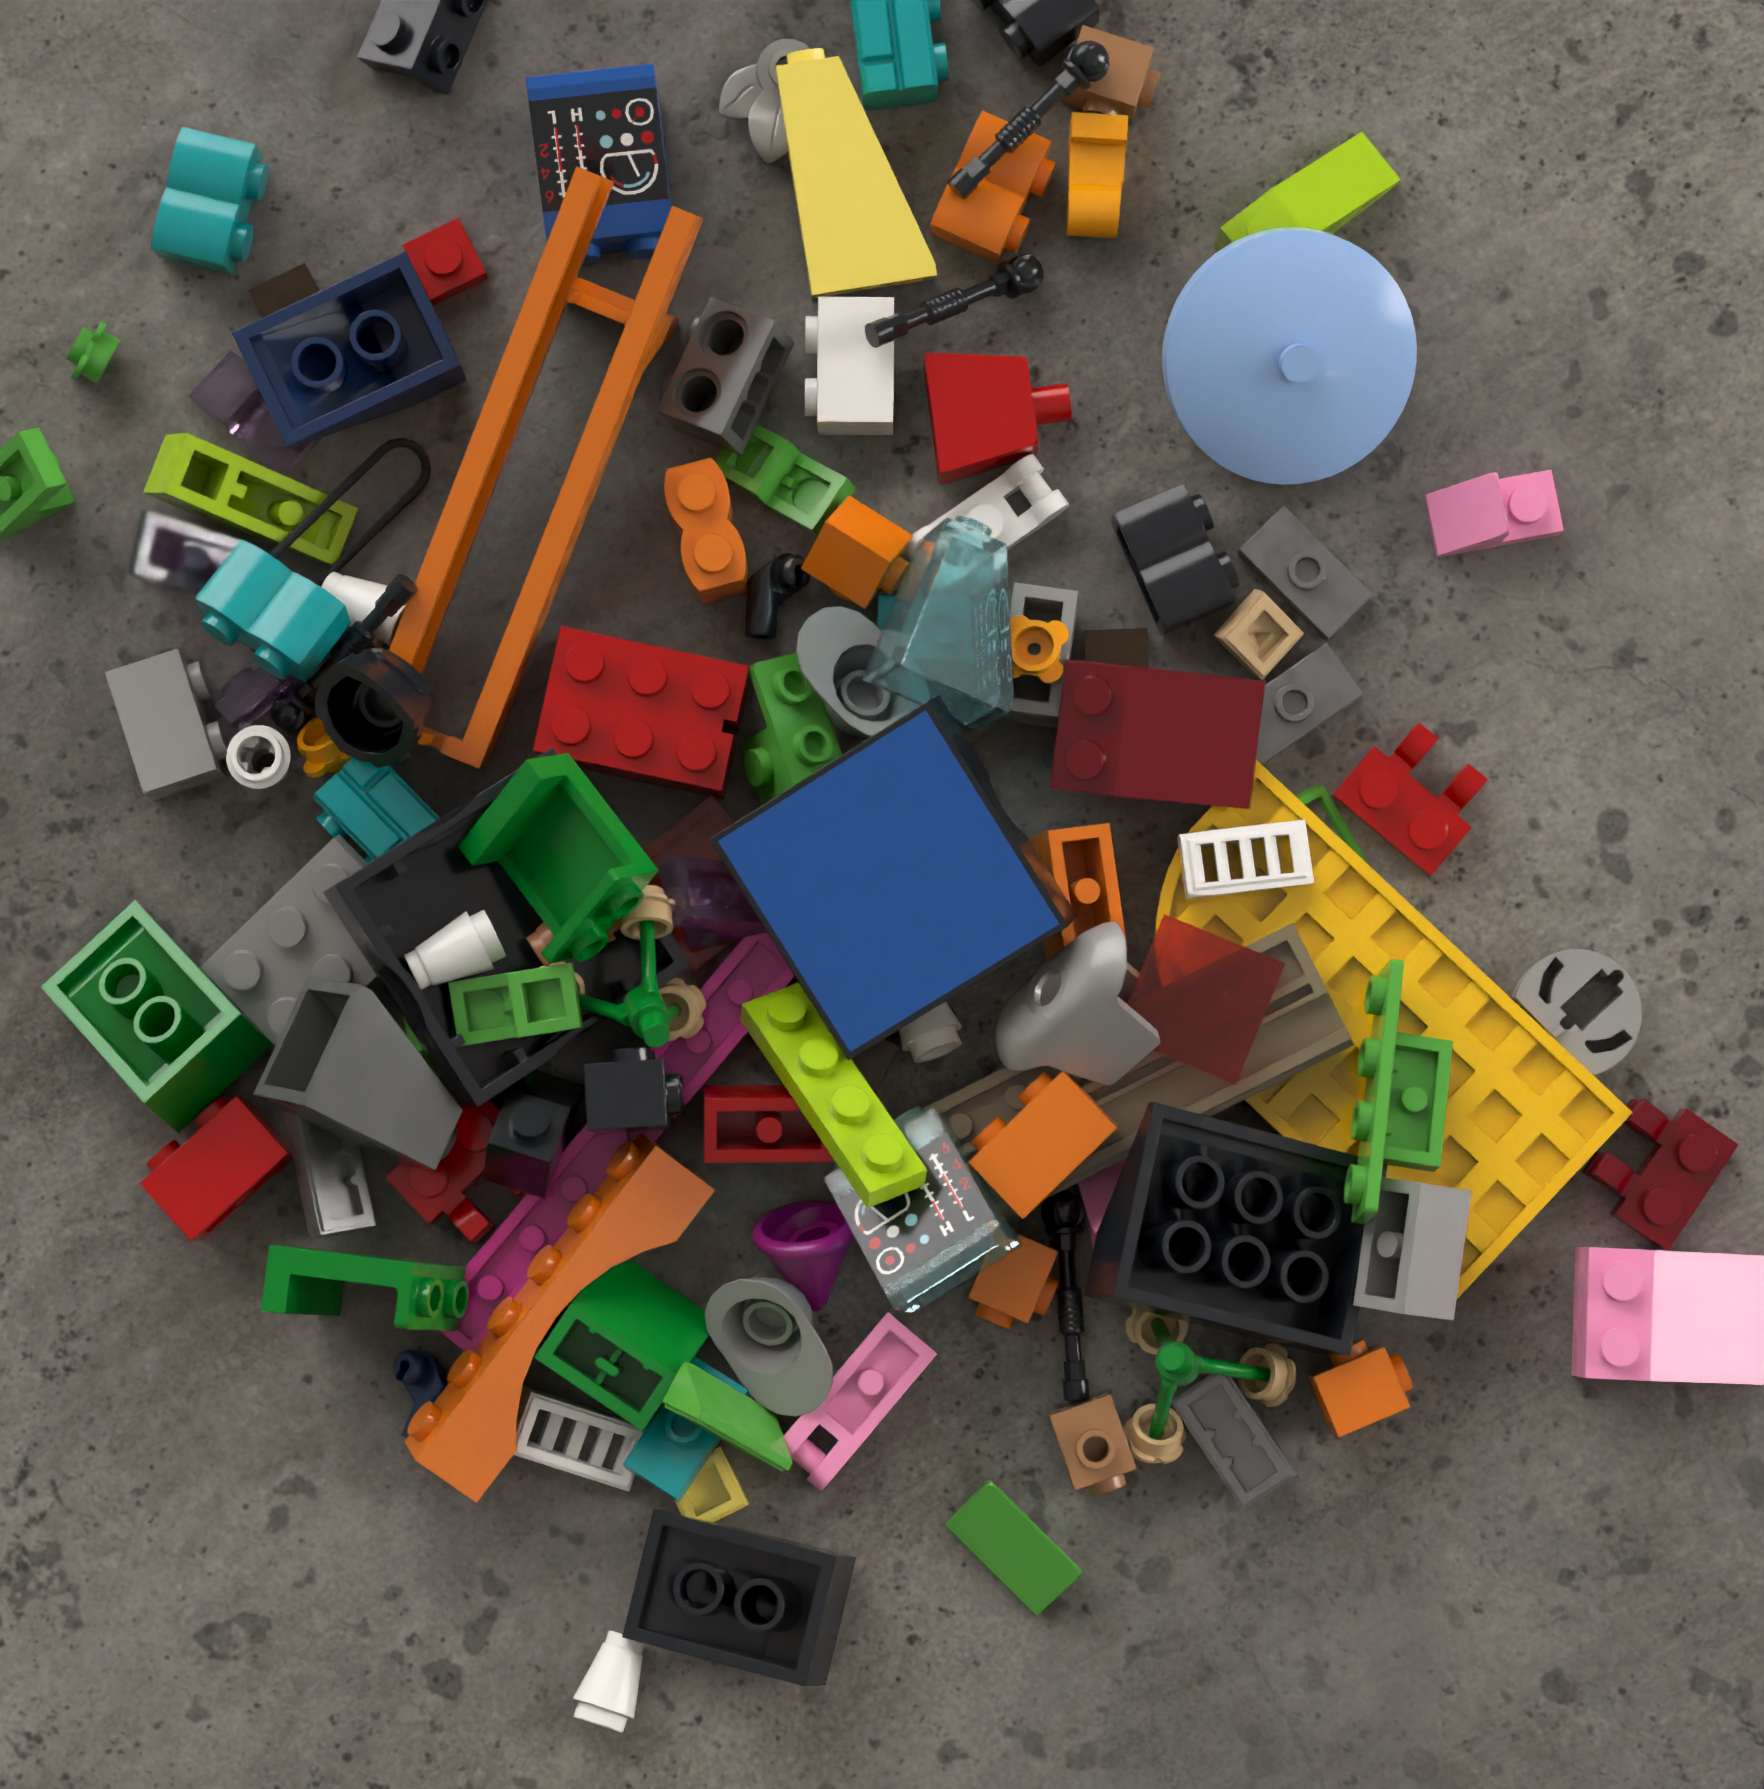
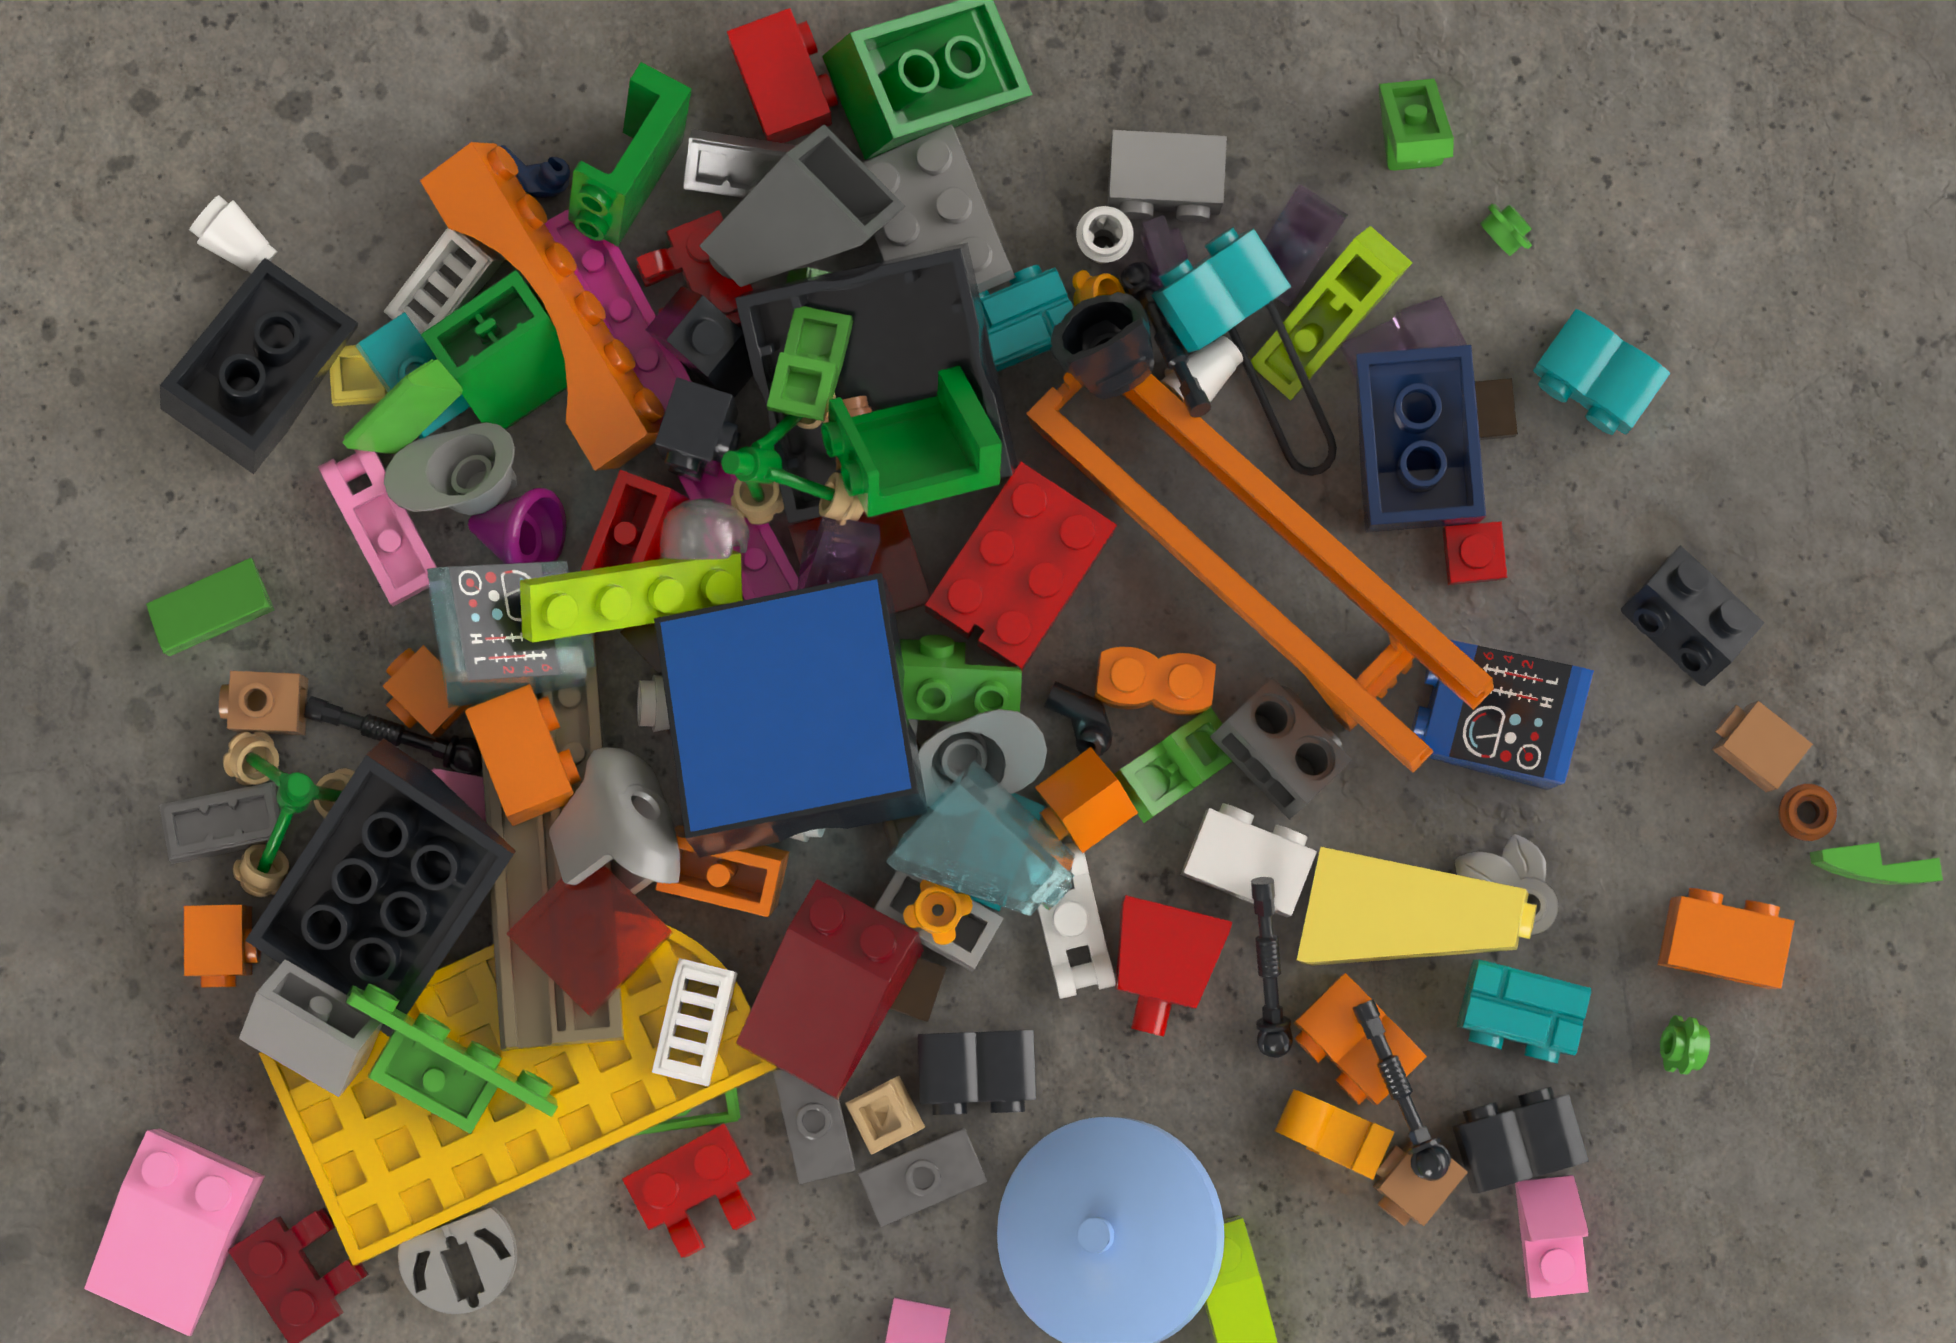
camera: 105 degrees right, 0 degrees up
(456, 951) = (874, 332): white cone -> none
(736, 1048) = (703, 531): none -> clear hair

